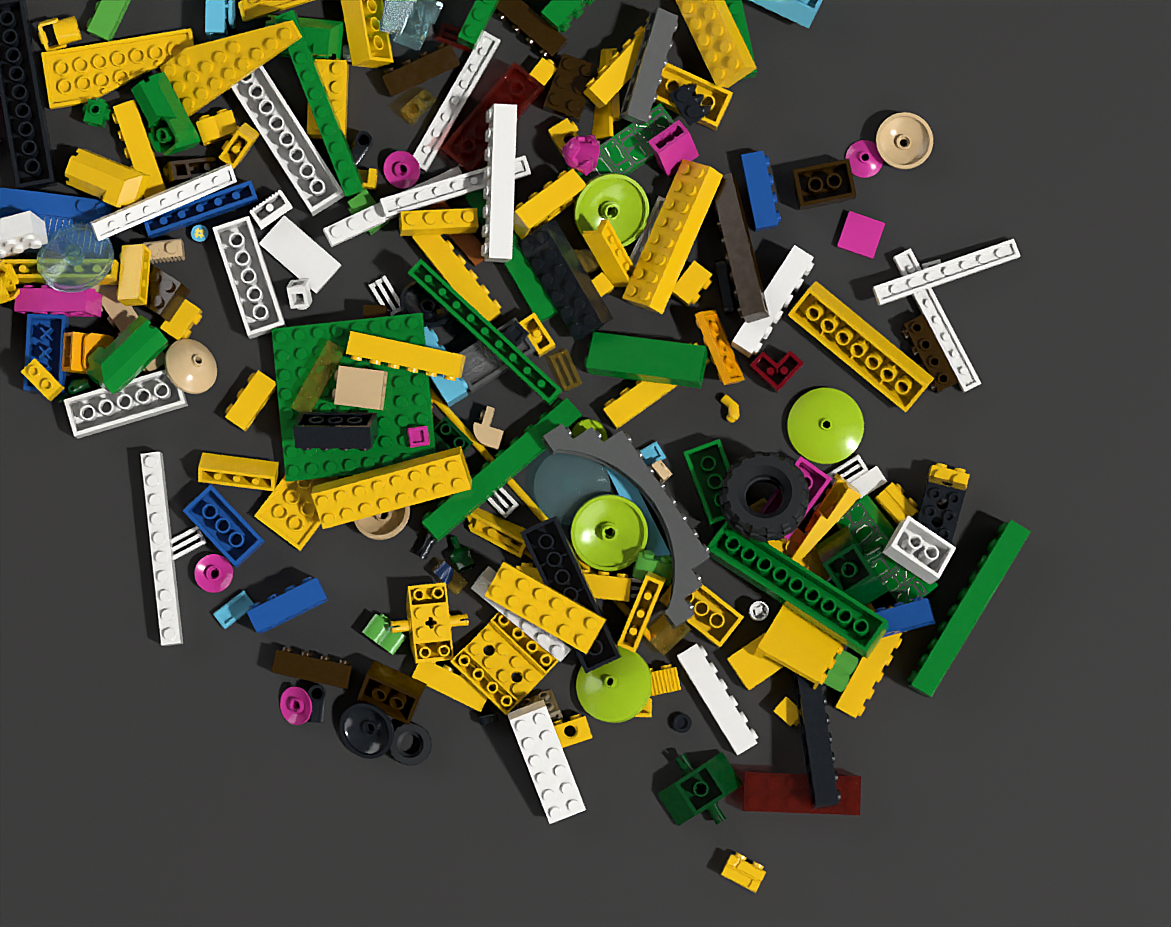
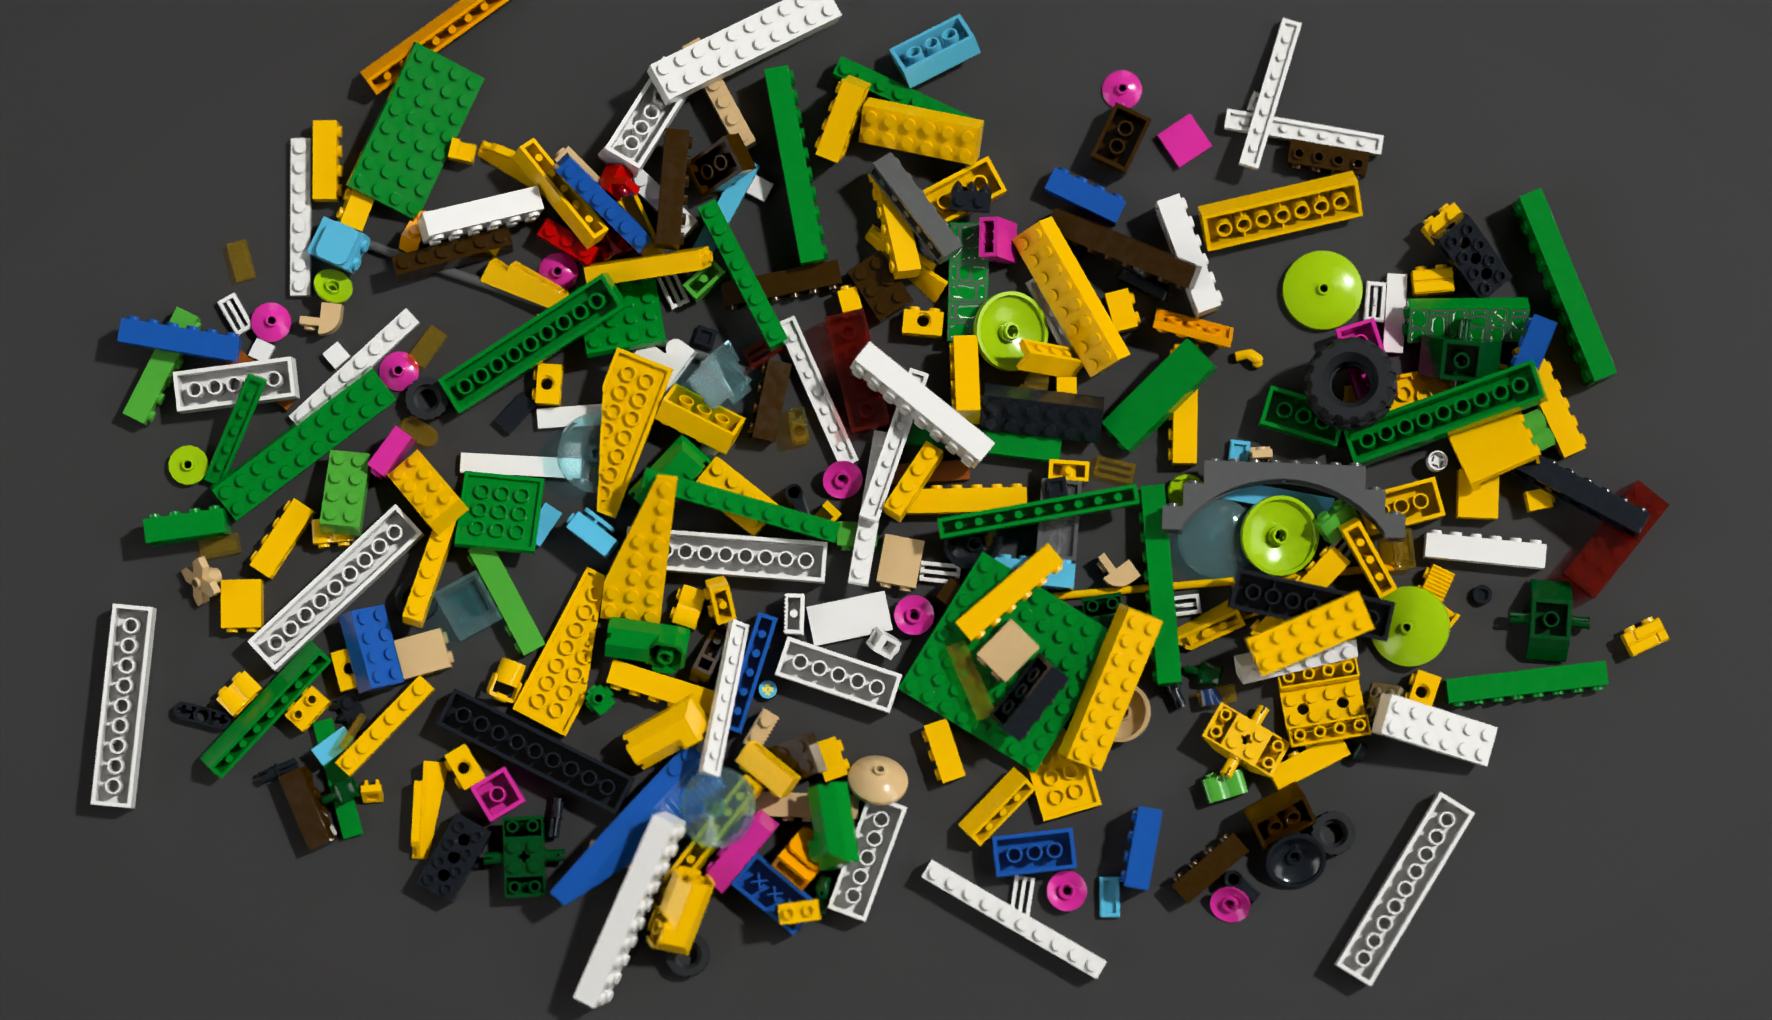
camera: 50 degrees left, 0 degrees up
(332, 293) = (916, 604): none -> dark pink dish
(371, 260) = (900, 562): none -> tan brick
(407, 830) = (1404, 888): none -> white brick
(418, 436) = (1085, 632): dark pink tile -> none
(582, 153) = (946, 319): dark pink helmet -> none
(639, 807) = (1526, 682): none -> green brick
(776, 374) = (1250, 298): dark red brick -> none
(831, 509) = (1397, 333): yellow wedge -> none
(910, 129) = (1137, 32): tan dish -> none
(919, 550) = (1490, 290): white brick -> none

